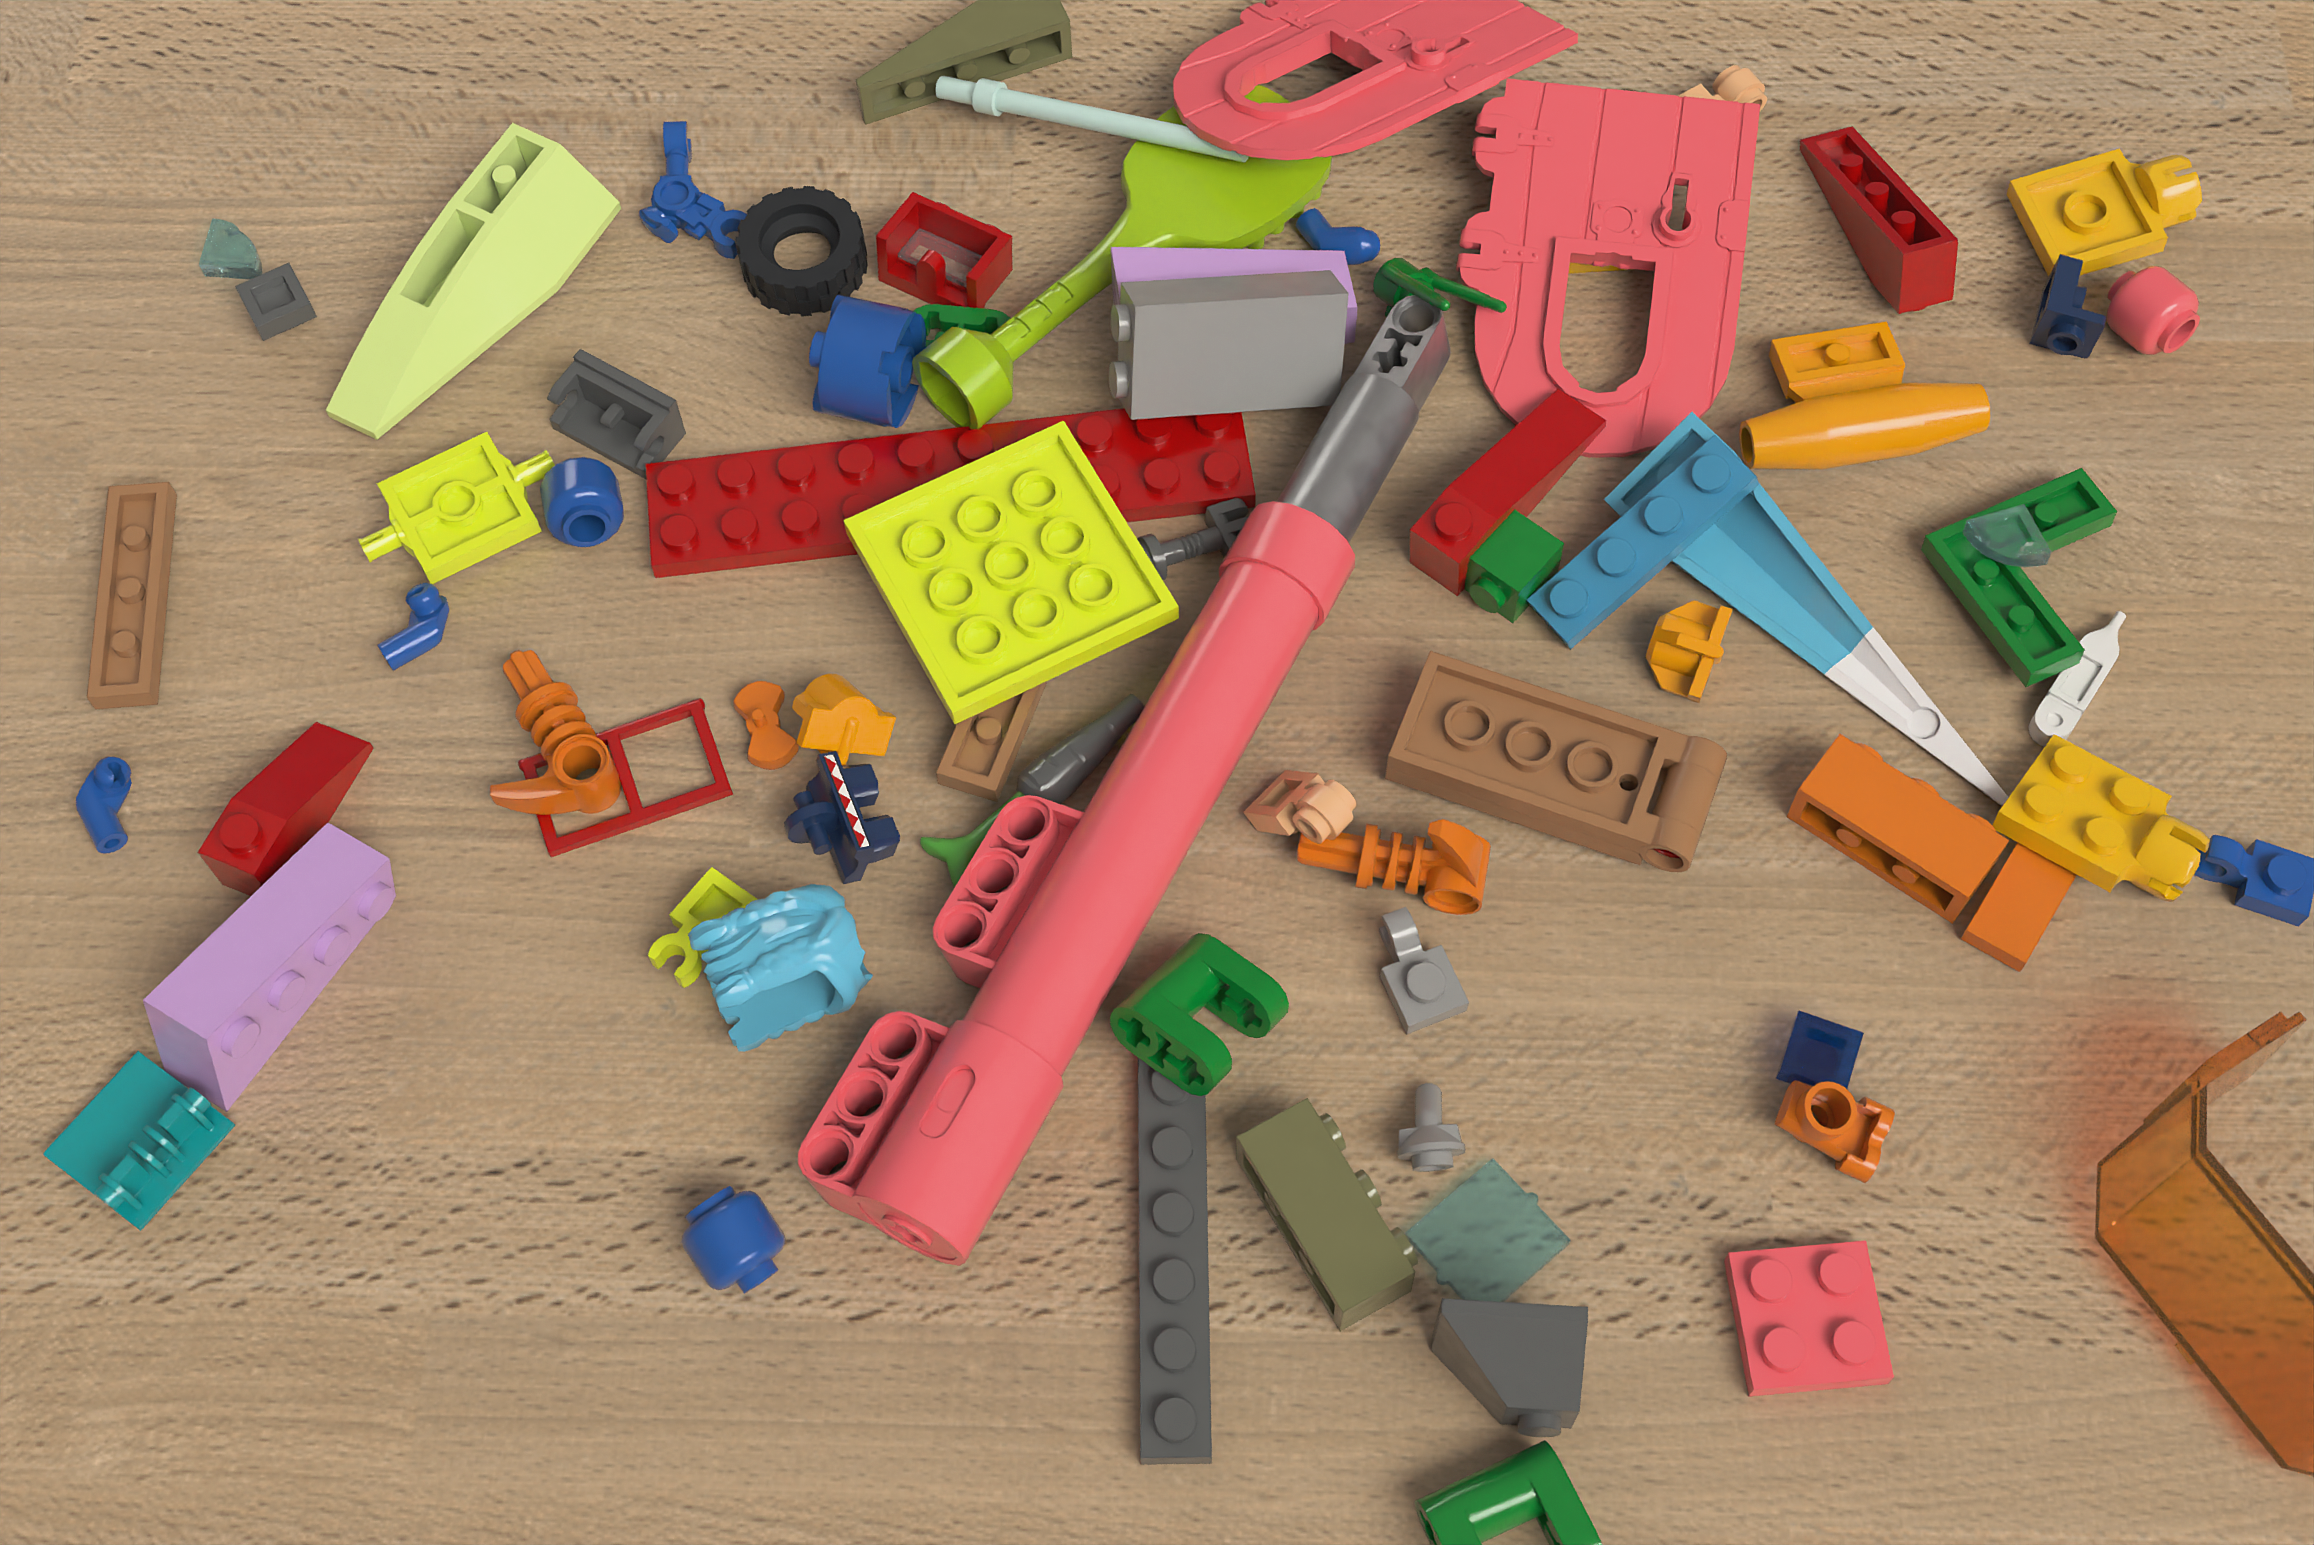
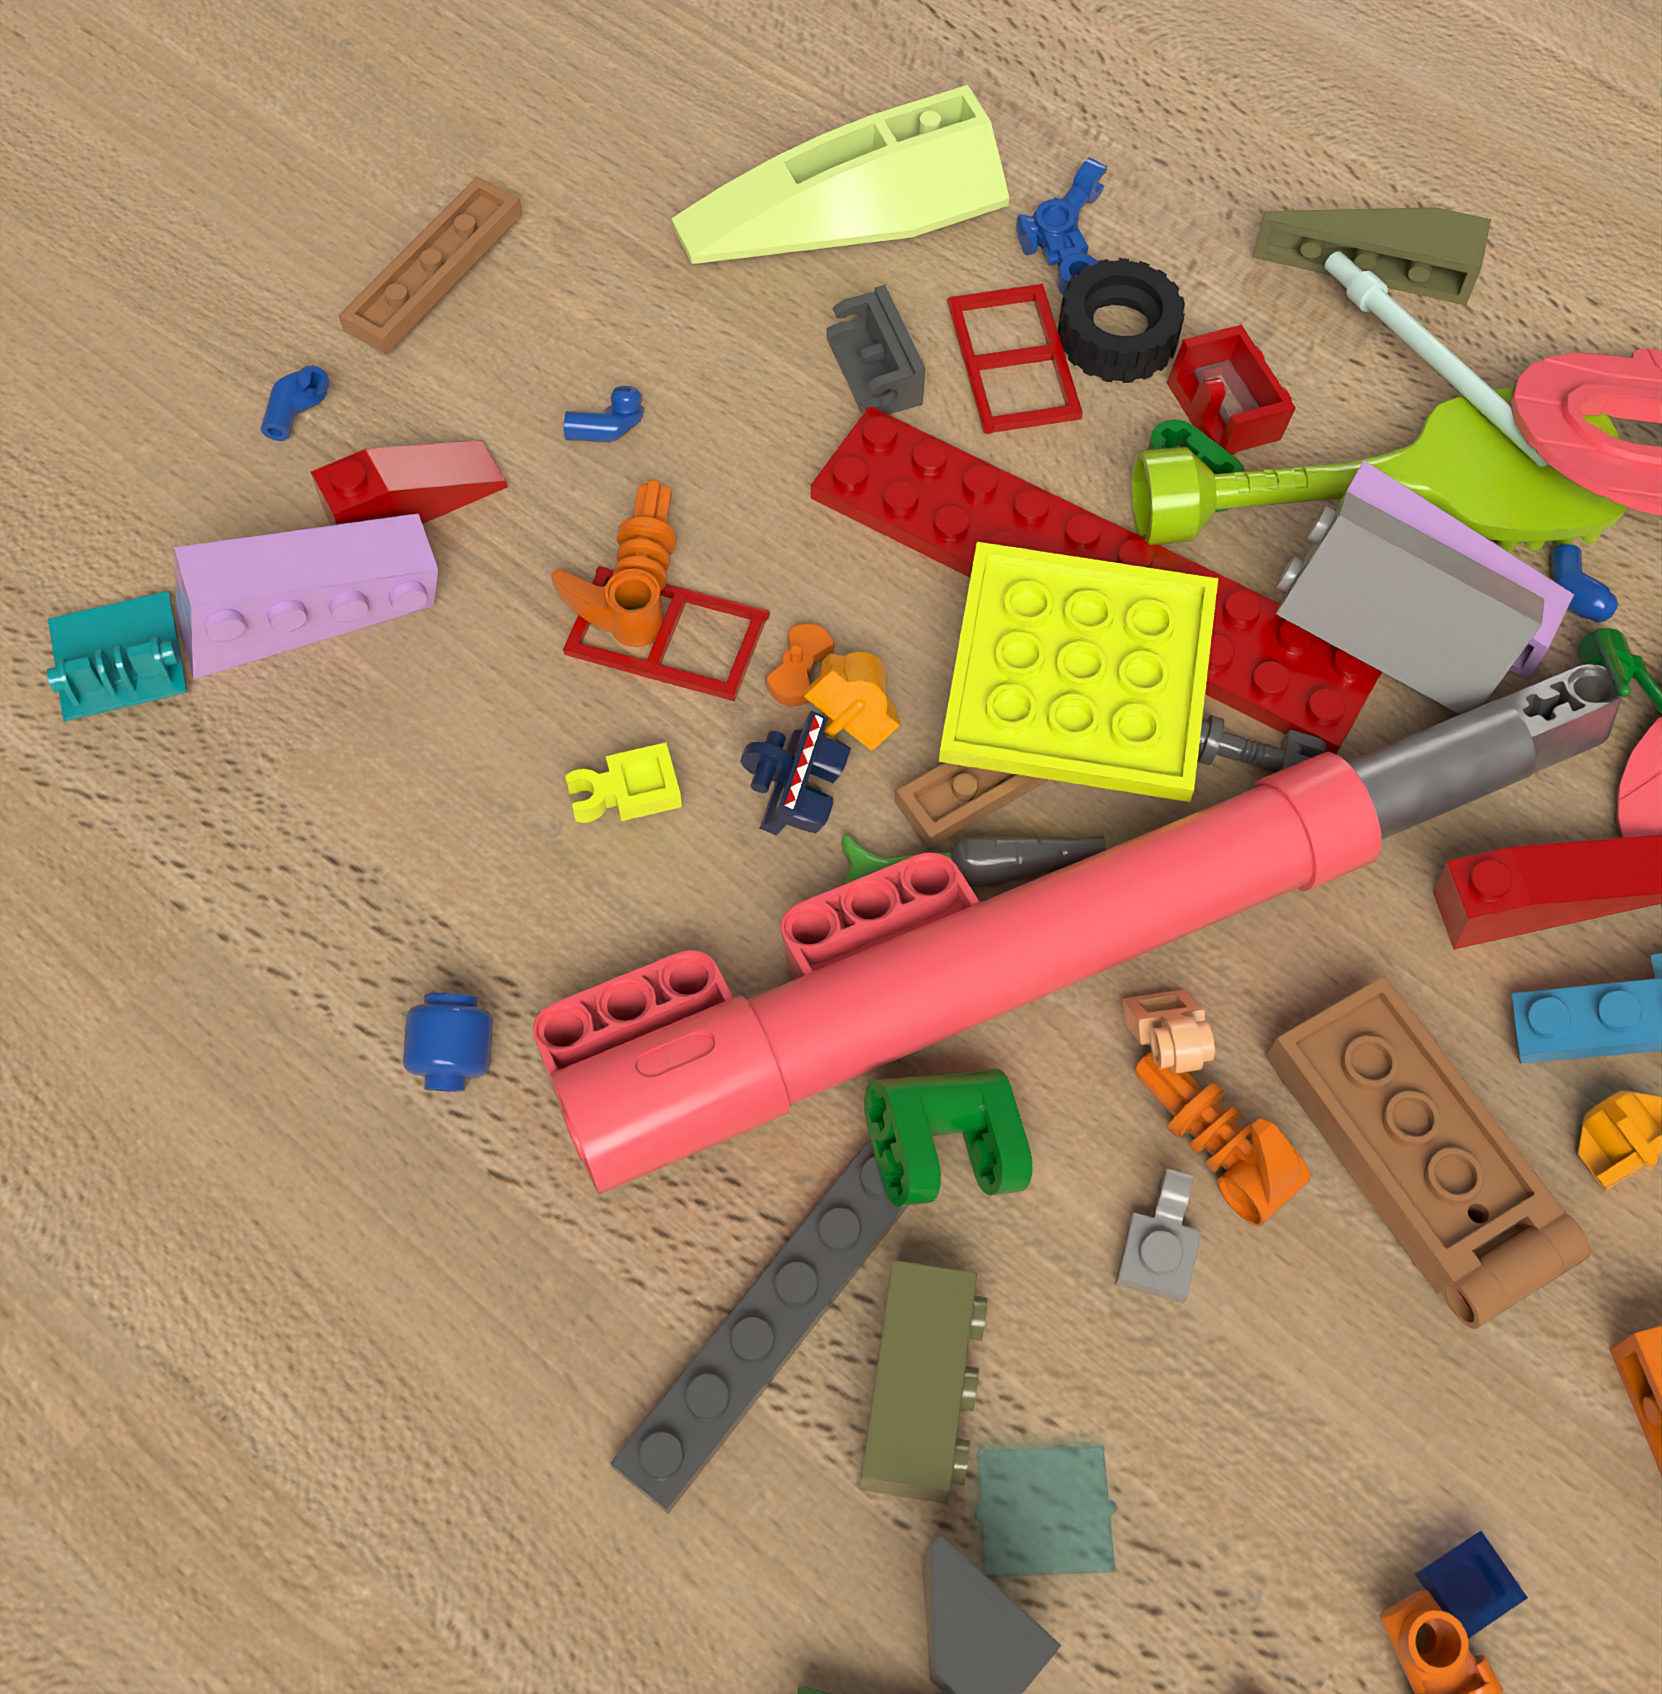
camera: 35 degrees right, 0 degrees up
(229, 253) = (699, 67): clear light blue tile -> none
(276, 301) = (700, 119): dark grey plate -> none
(458, 507) = (706, 349): neon yellow plate -> none
(581, 502) = (797, 402): blue head -> none
(704, 367) = (1051, 351): none -> red window
(782, 962) = (652, 852): medium azure piece -> none
(867, 362) = (1096, 432): blue brick -> none
(1429, 1142) = (1056, 1390): light grey plate -> none
(1512, 566) = (1520, 955): green brick -> none

